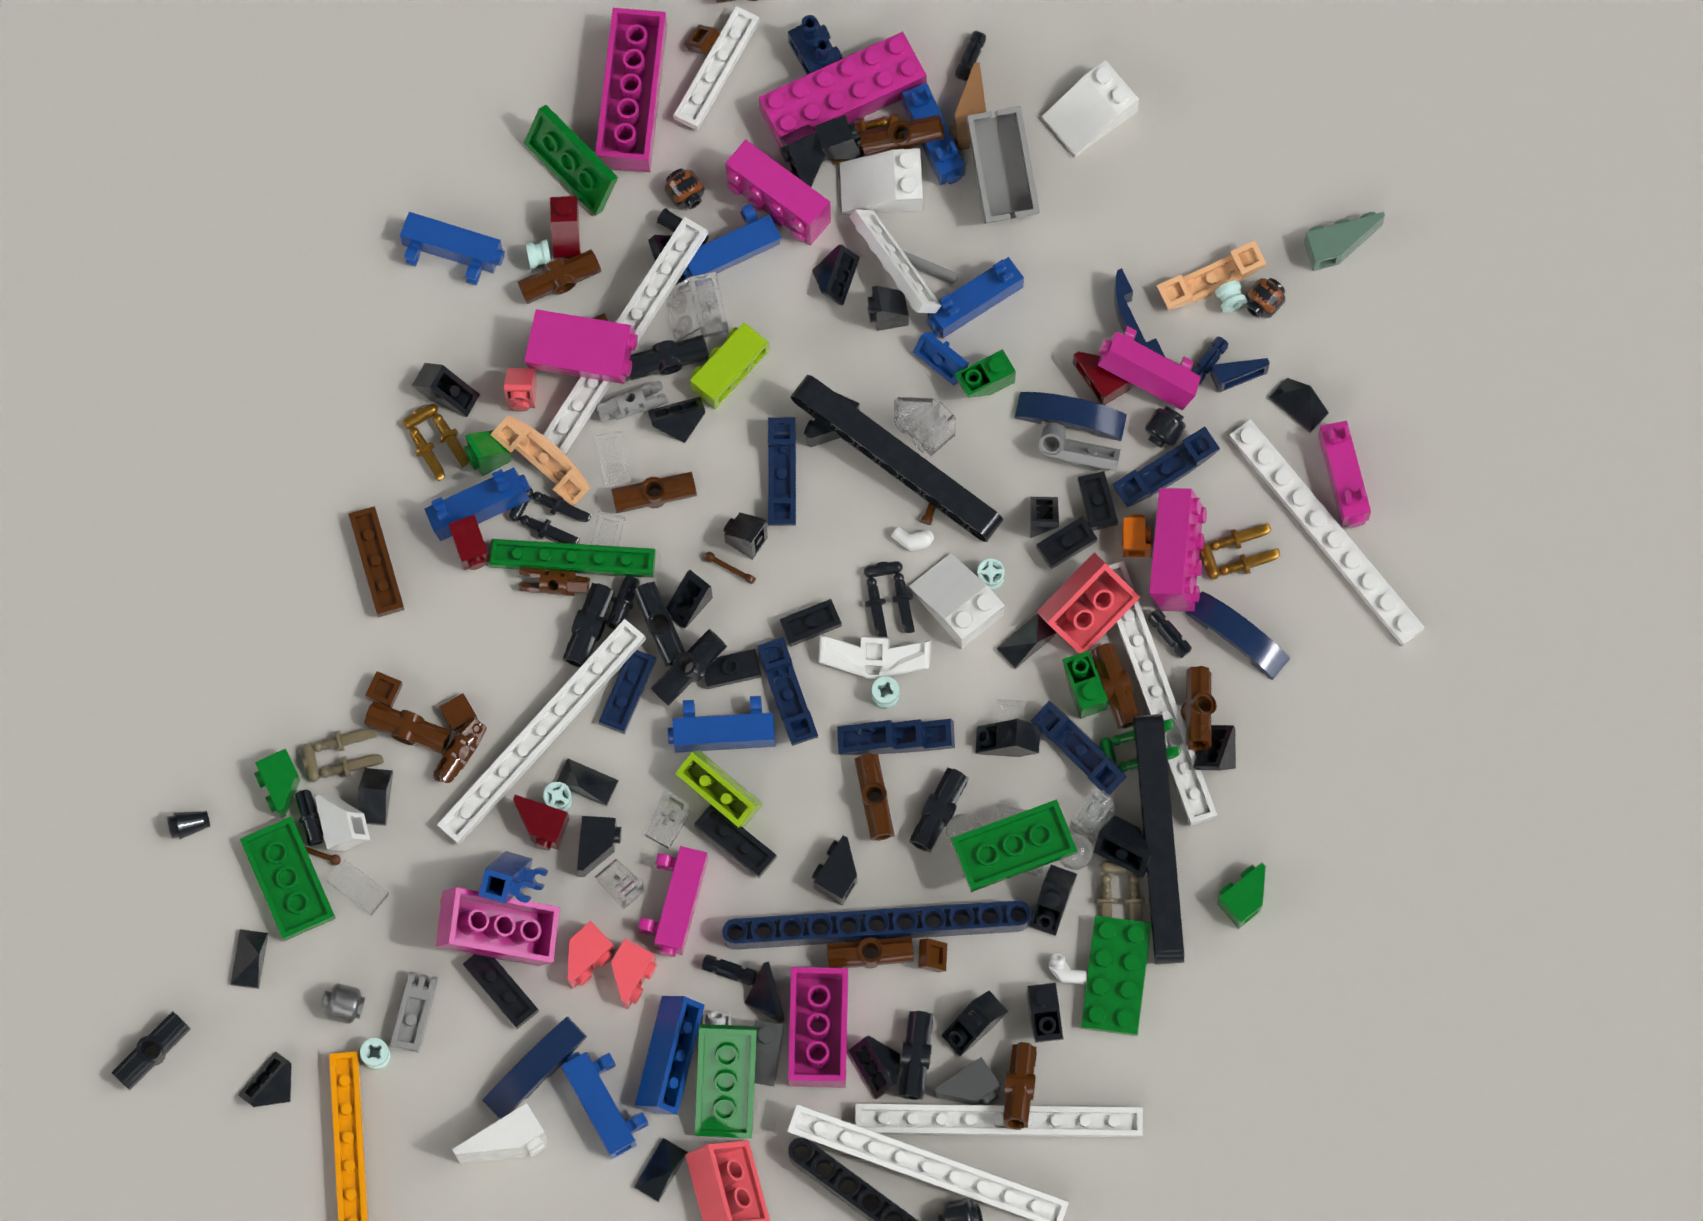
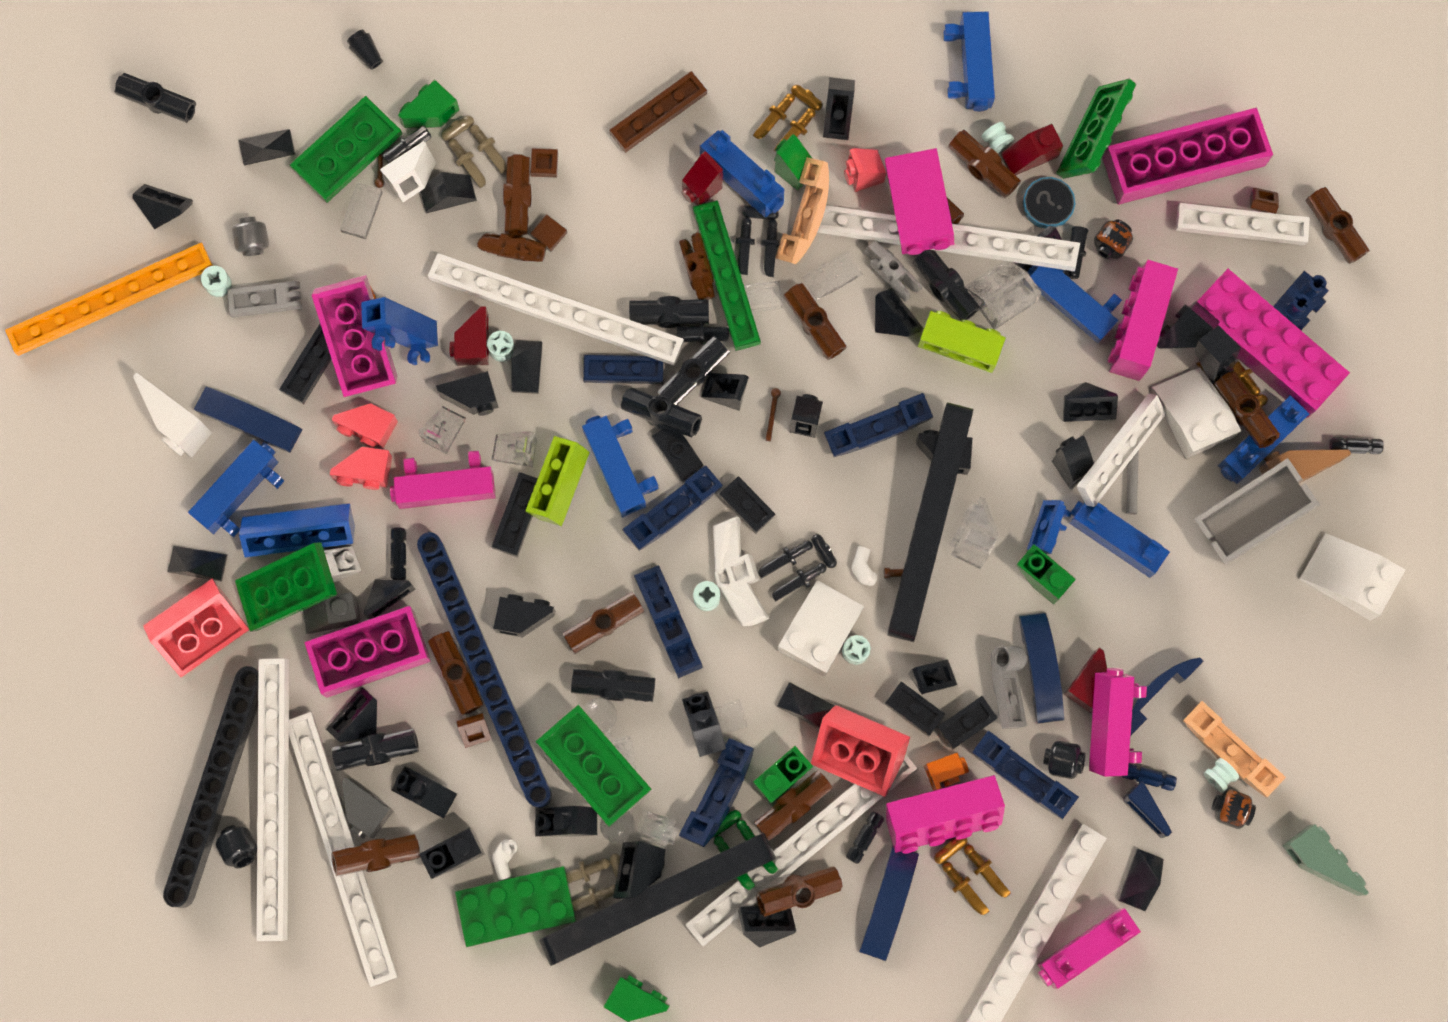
camera: 65 degrees right, 5 degrees up
(622, 233) = (1048, 202): none -> black tile

